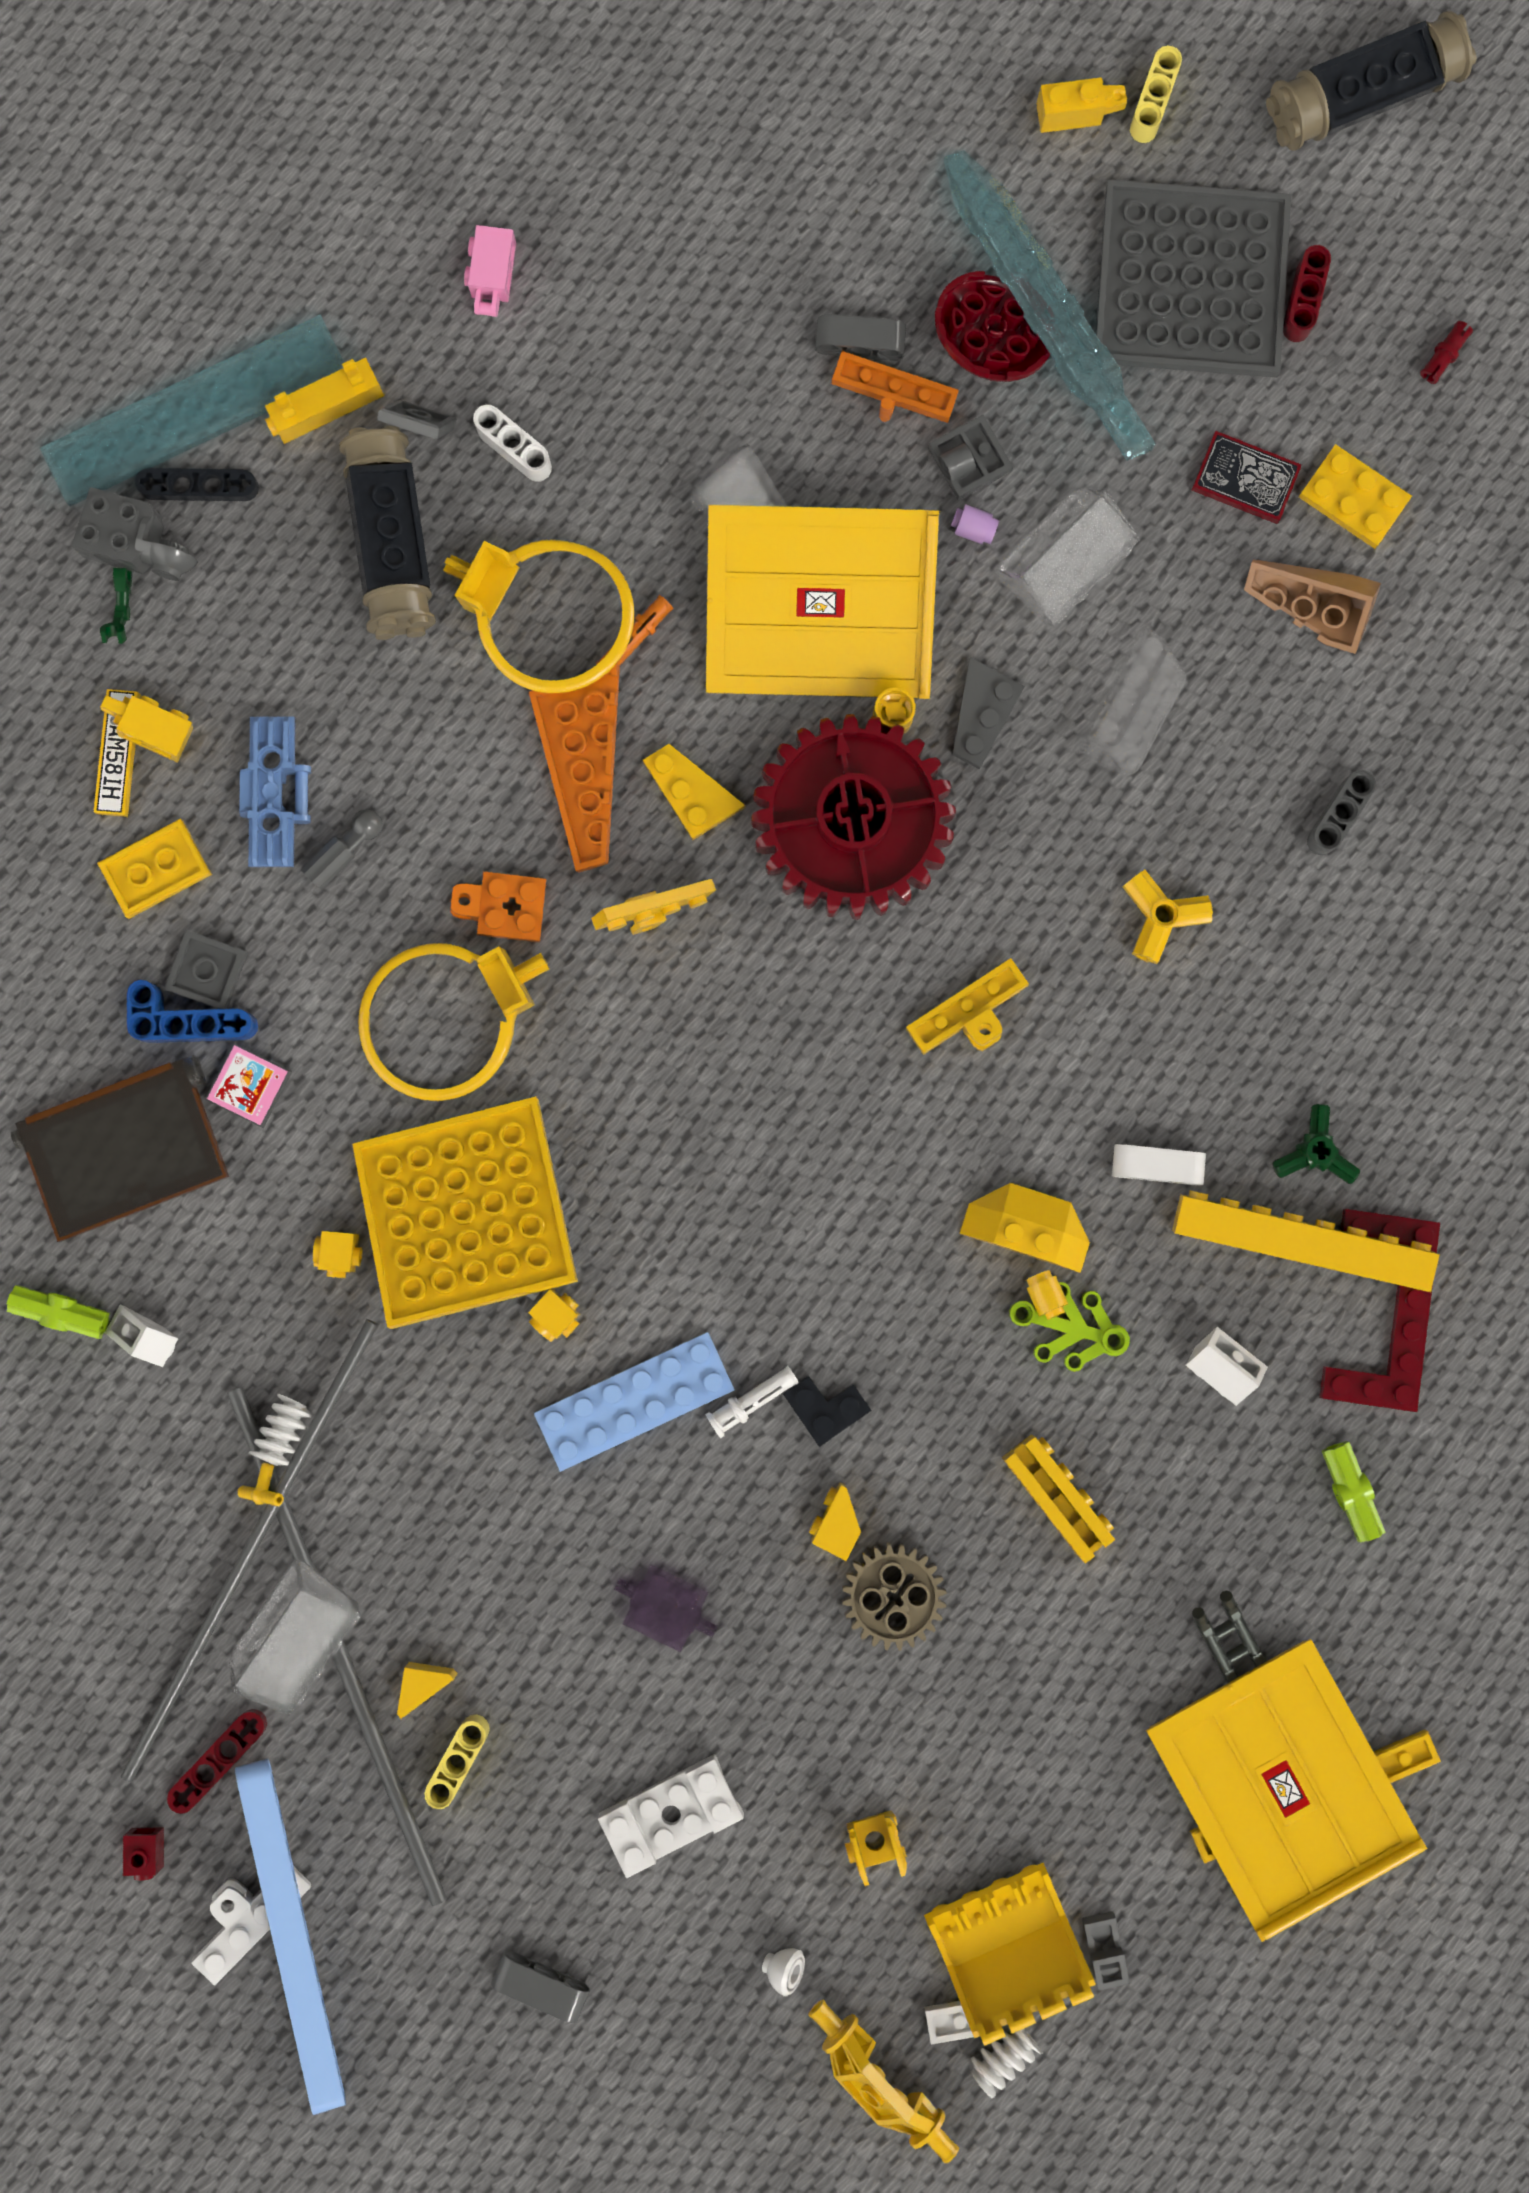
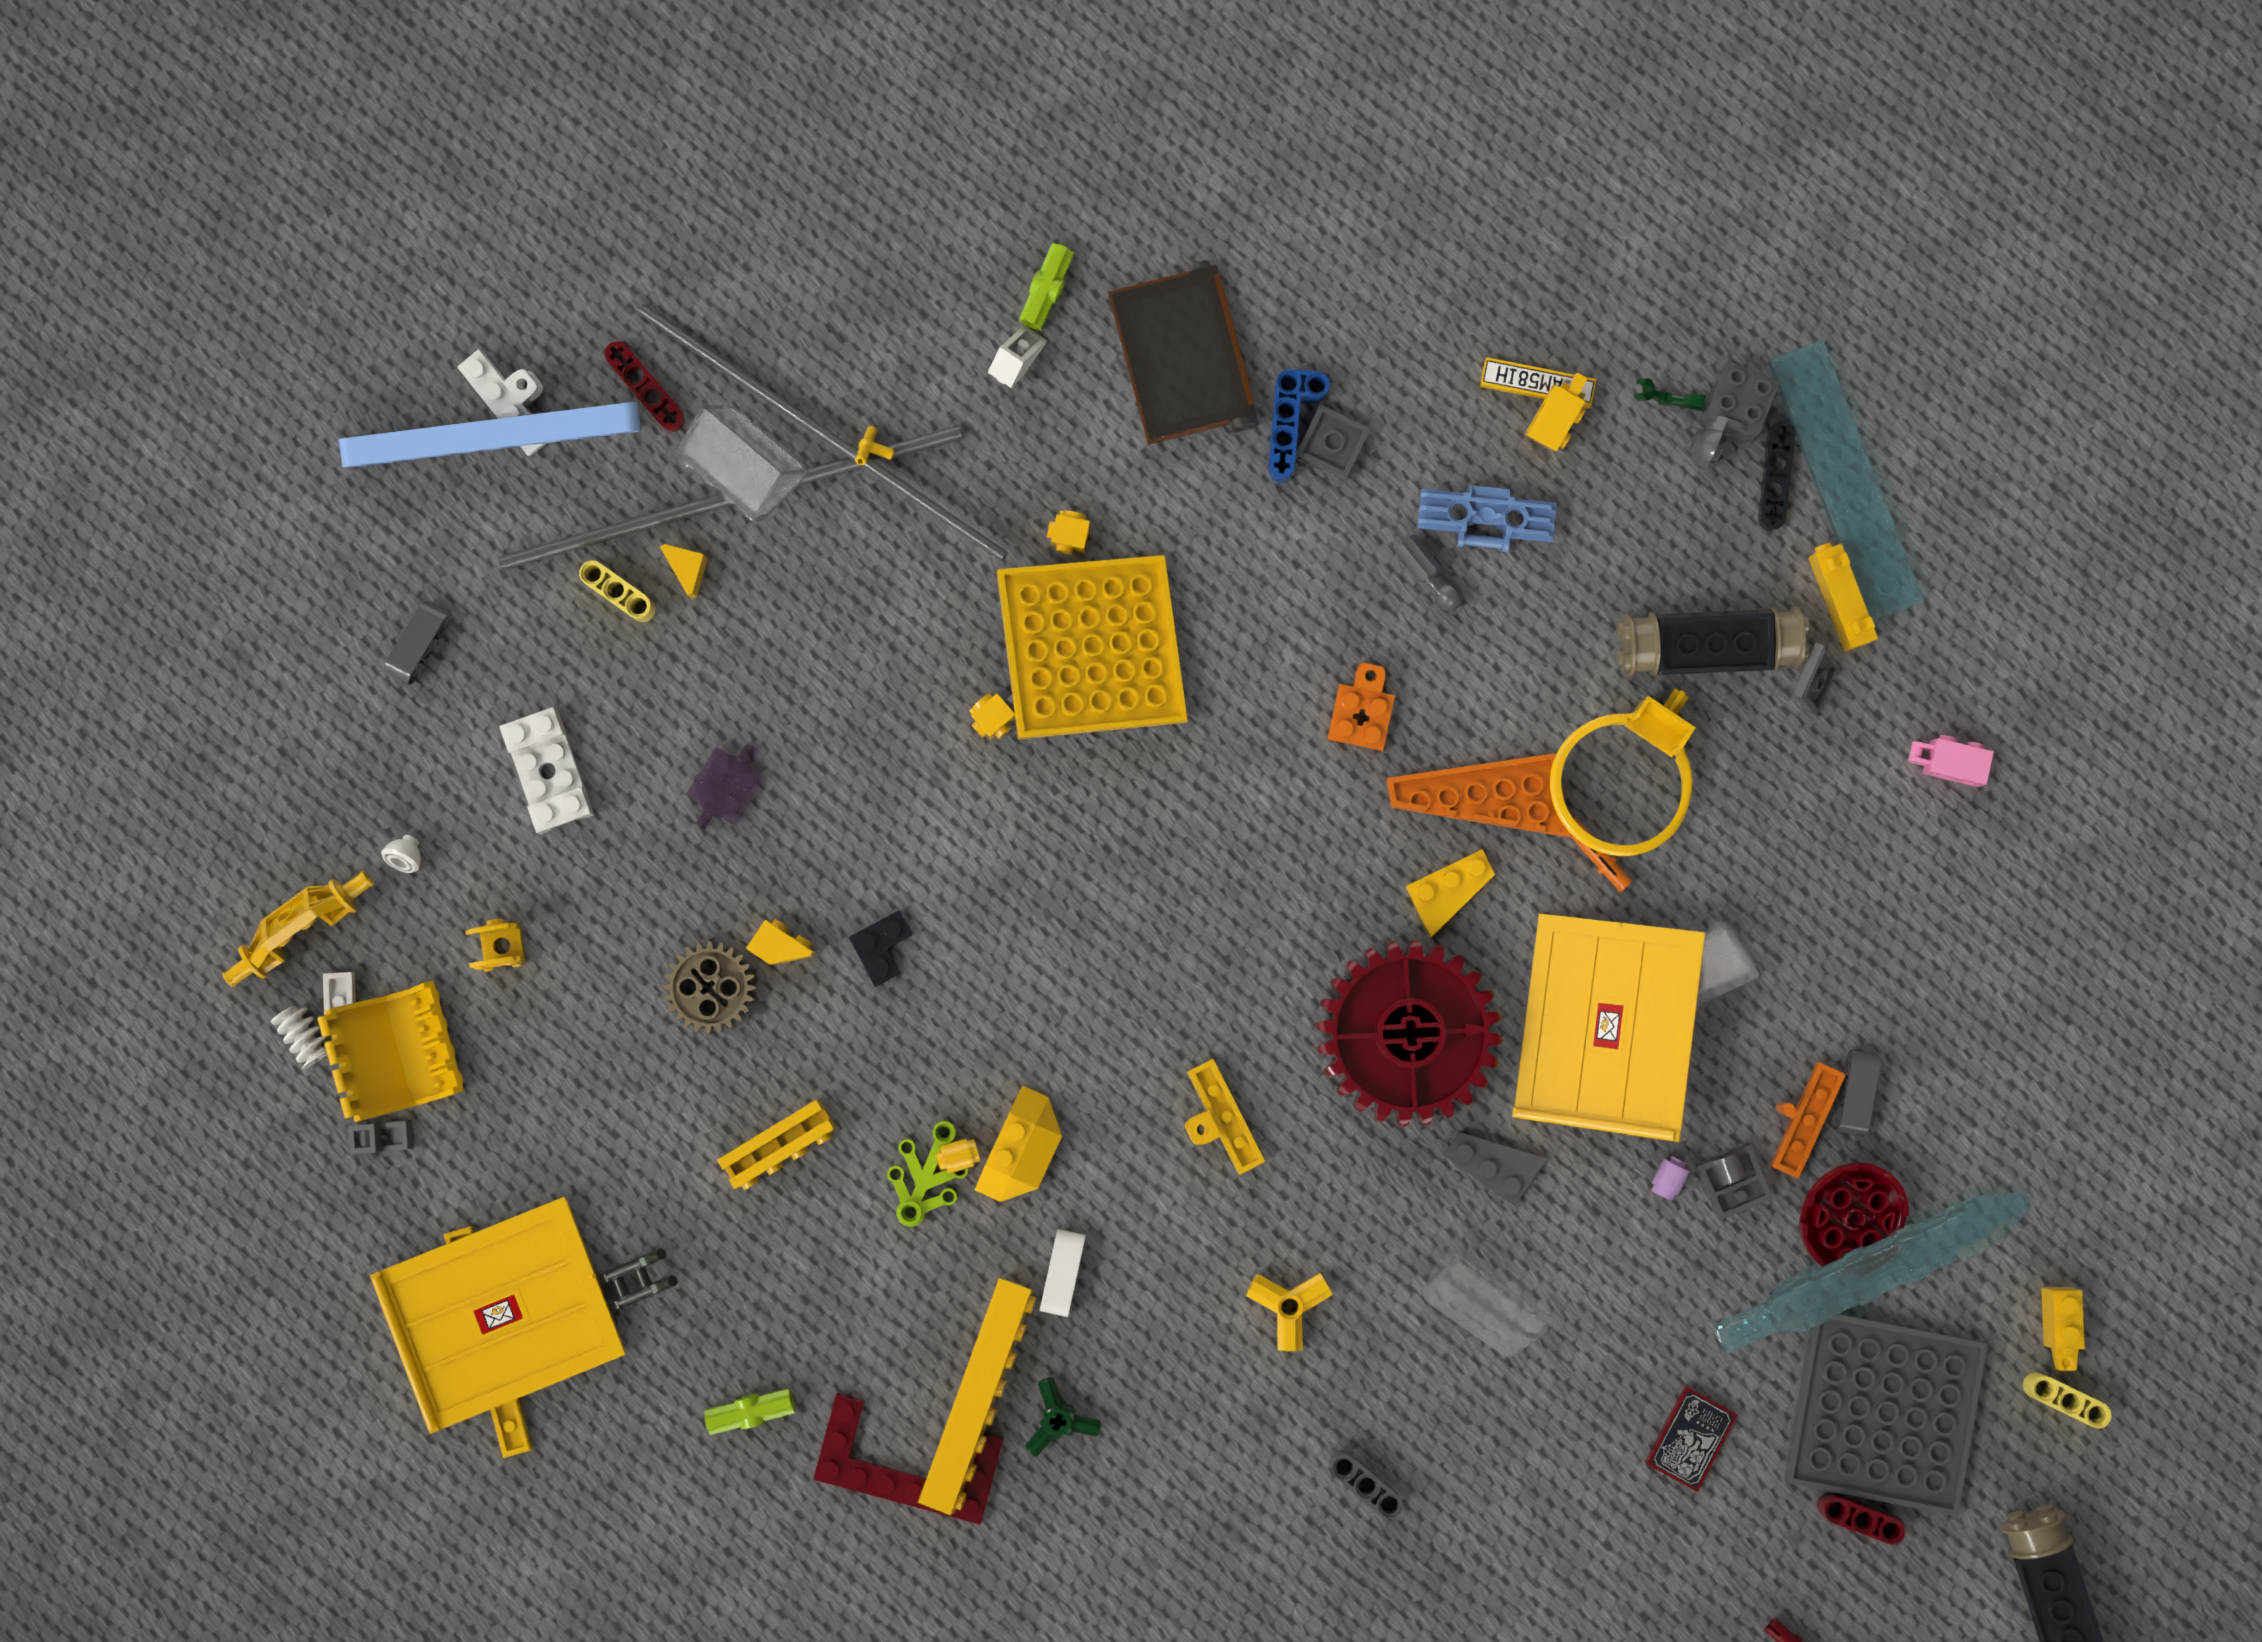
camera: 100 degrees right, 0 degrees up
(143, 1852) = (576, 317): dark red brick -> none
(154, 868) = (1429, 405): yellow tile -> none
(248, 1085) = (1226, 469): tile -> none
(281, 1432) = (919, 469): white piece -> none
(506, 430) = (1798, 756): white beam -> none
(507, 987) = (1288, 706): yellow brick -> none
(634, 1401) = (908, 778): light blue plate -> none
(652, 908) = (1344, 841): yellow plate -> none
(739, 1409) = (890, 870): white pin -> none
(893, 708) = (1503, 1082): yellow wheel -> none
(1067, 554) = (1633, 1259): clear windscreen -> none
(1226, 1366) = (875, 1310): white brick -> none
(1323, 600) = (1566, 1495): medium nougat wedge -> none
(1355, 496) = (1663, 1539): yellow plate -> none

